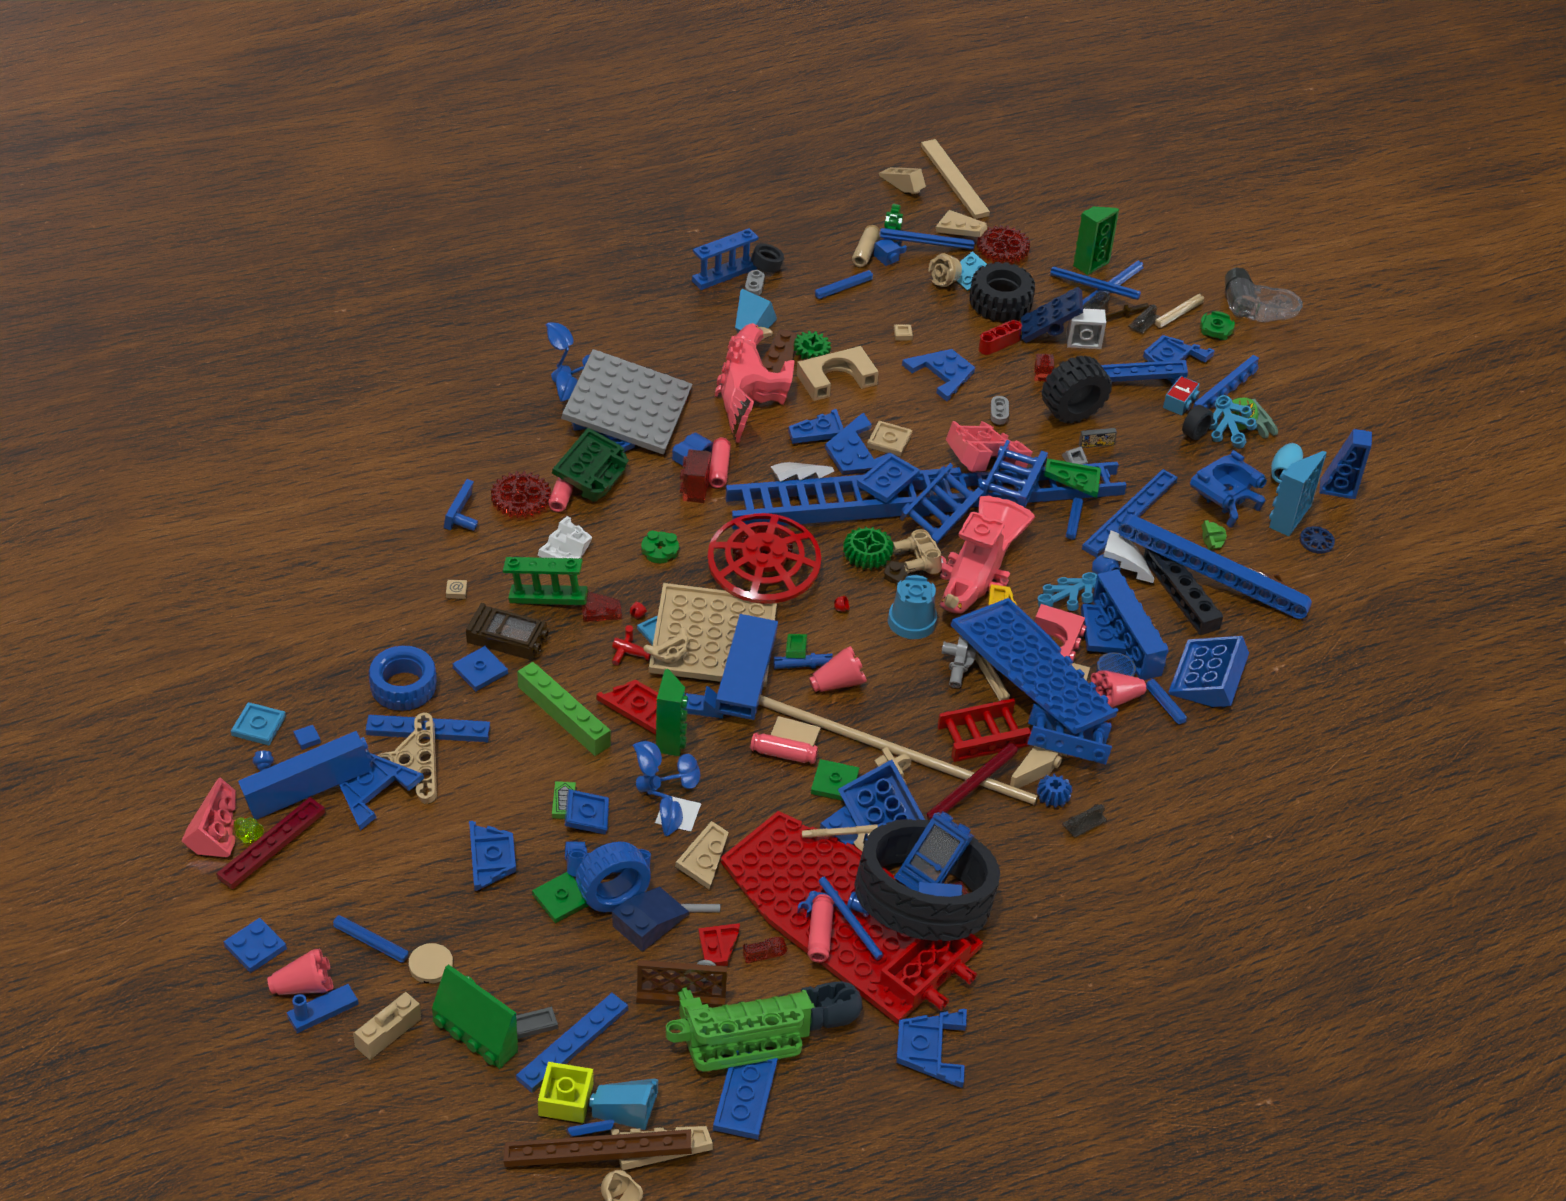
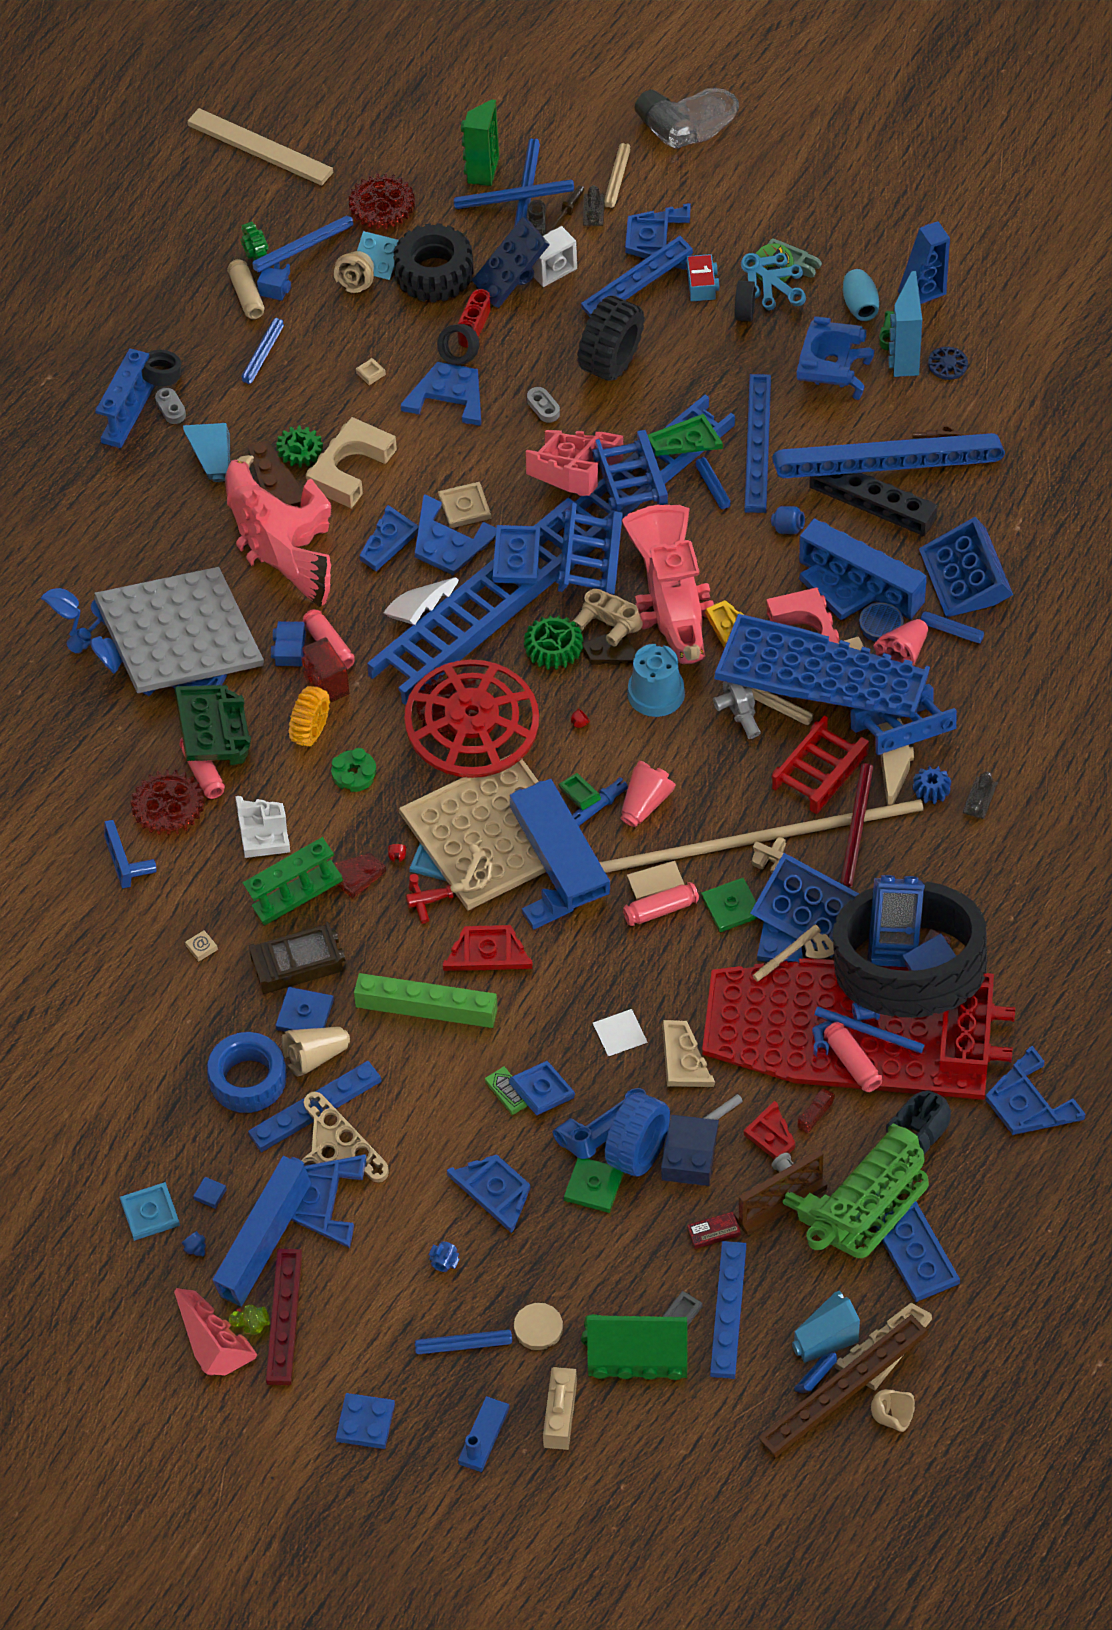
camera: 30 degrees left, 10 degrees up
(303, 975) = (443, 1418): coral cone -> none
(411, 874) = (444, 1256): none -> blue gear
(461, 689) = (313, 1047): none -> tan cone
(565, 1092) = (770, 1357): neon yellow brick -> none
(614, 982) = (713, 1230): none -> dark red tile
(649, 759) = (576, 1018): blue plant -> none
(658, 495) = (309, 716): none -> light orange gear
(671, 715) = (546, 941): green slope -> none
(905, 179) = (213, 179): tan slope -> none
(960, 225) = (319, 203): tan wing -> none
(981, 348) = (443, 346): none -> black tyre
(1043, 366) = (546, 328): clear red brick -> none
(1075, 456) = (657, 413): light grey slope -> none
(1087, 581) = (785, 546): dark azure plant -> none
(1097, 438) = (662, 377): tile -> none
(1129, 555) = (796, 493): white slope -> none
(1213, 535) = (855, 420): bright green piece -> none
(1220, 331) = (663, 179): green plate -> none
(1229, 383) = (735, 235): blue plate -> none

